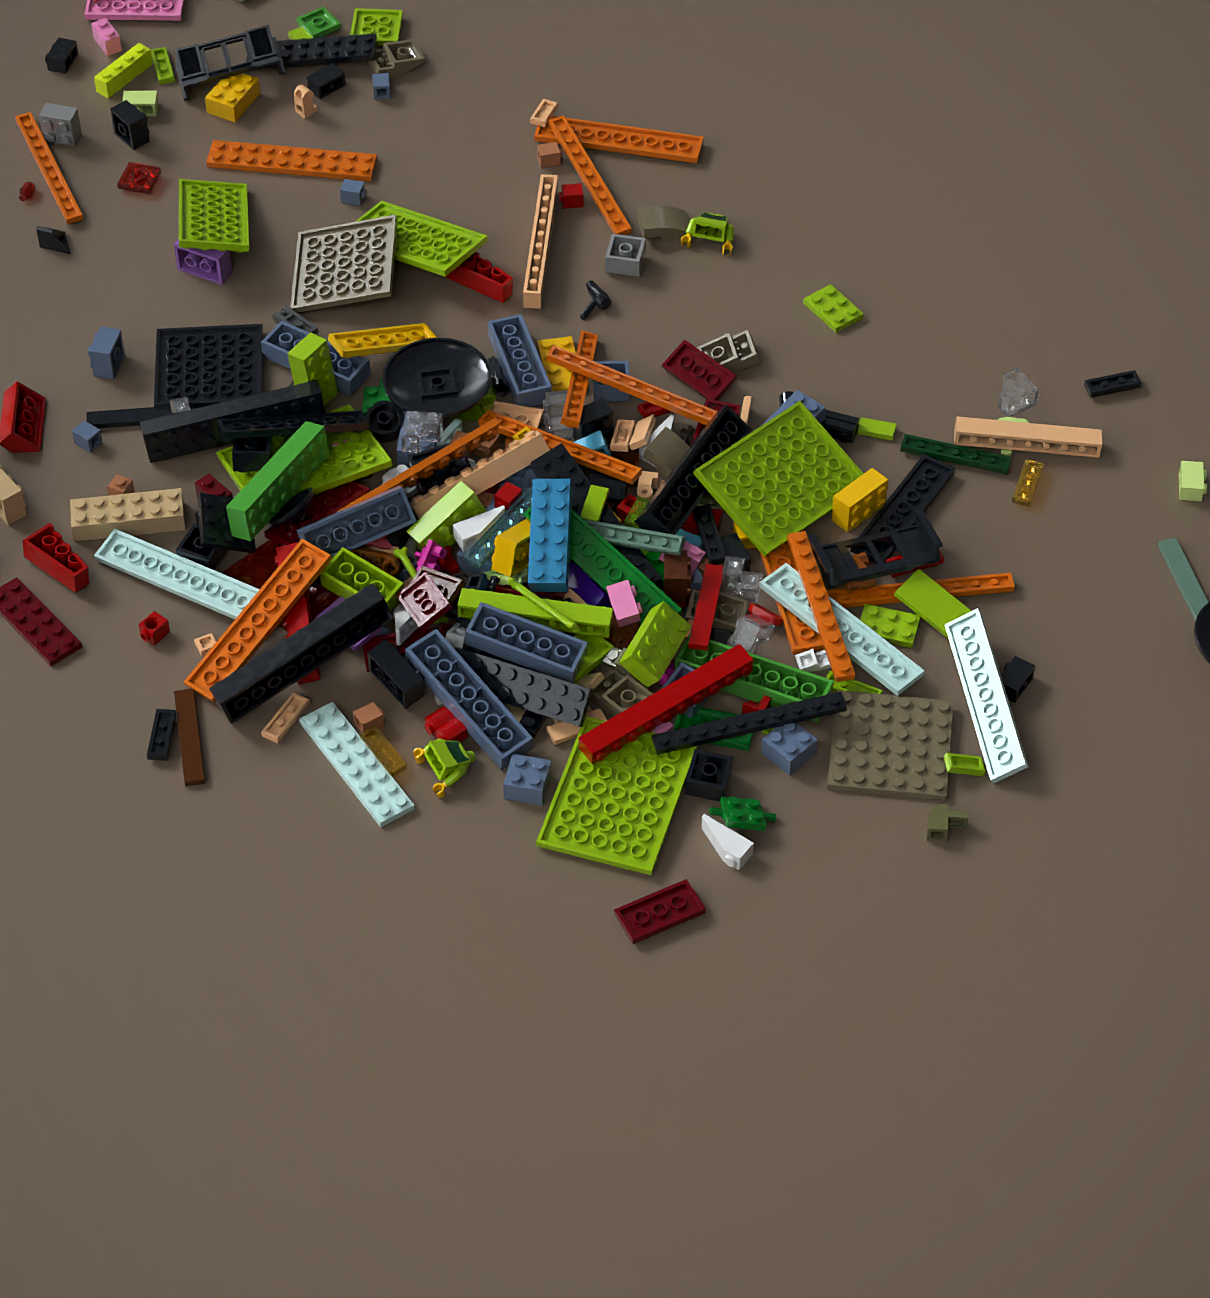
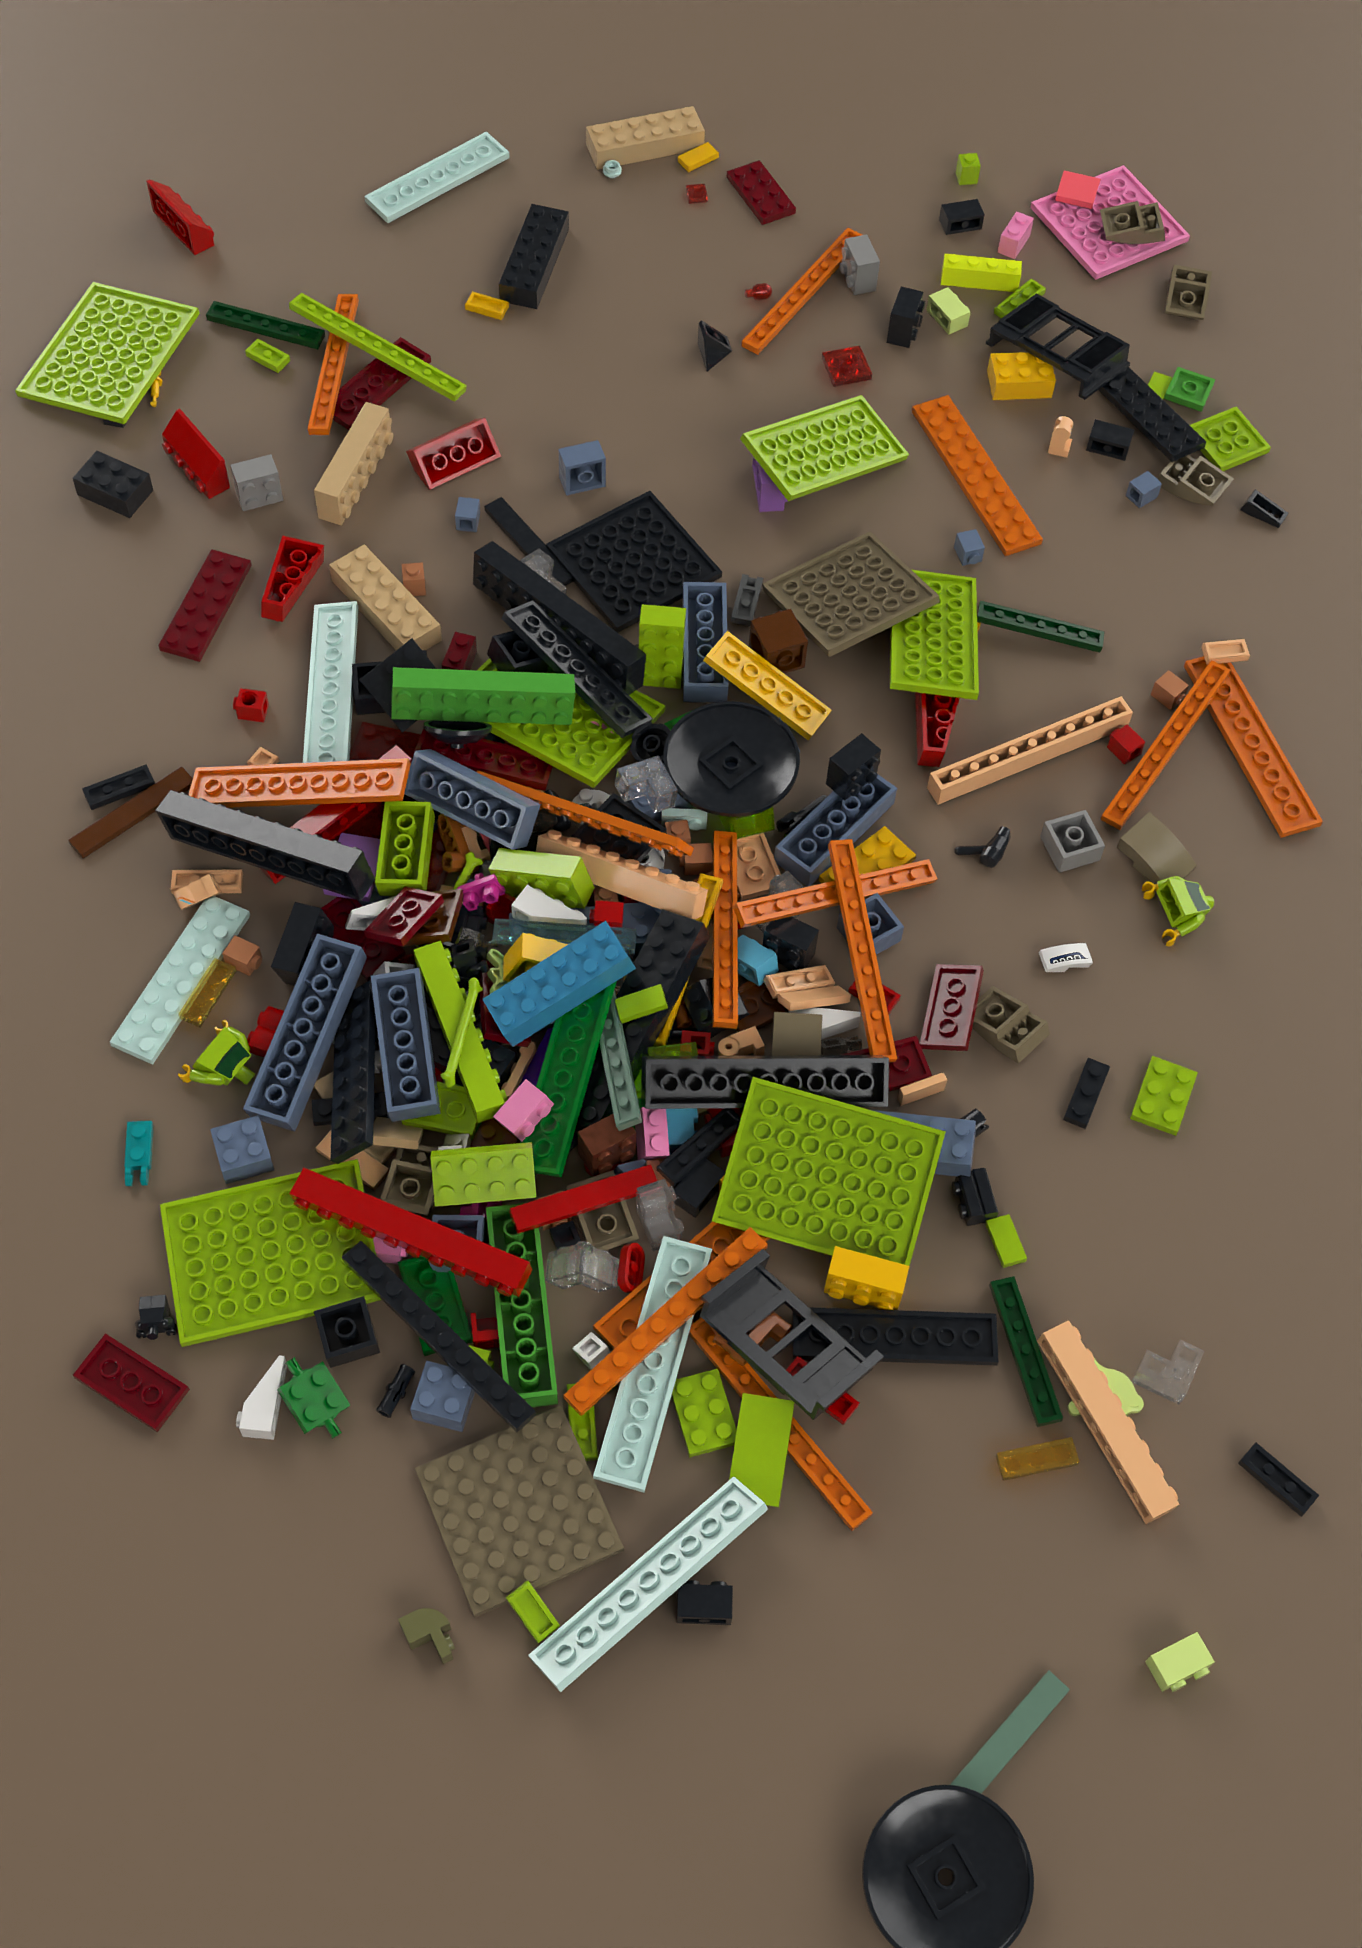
camera: 55 degrees right, 10 degrees up
(22, 30) = (968, 168): none -> lime brick
(295, 720) = (197, 891): none -> light nougat leg
(351, 314) = (779, 640): none -> reddish brown brick
(443, 41) = (1258, 505): none -> black slope
(448, 188) = (1040, 626): none -> dark green plate
(482, 842) = (138, 1150): none -> teal hinge
(496, 320) = (853, 767): none -> black brick
(621, 878) = (154, 1317): none -> black piece
(703, 303) = (1064, 956): none -> white slope
(765, 773) = (395, 1391): none -> black pin
(804, 342) = (1086, 1093): none -> black plate

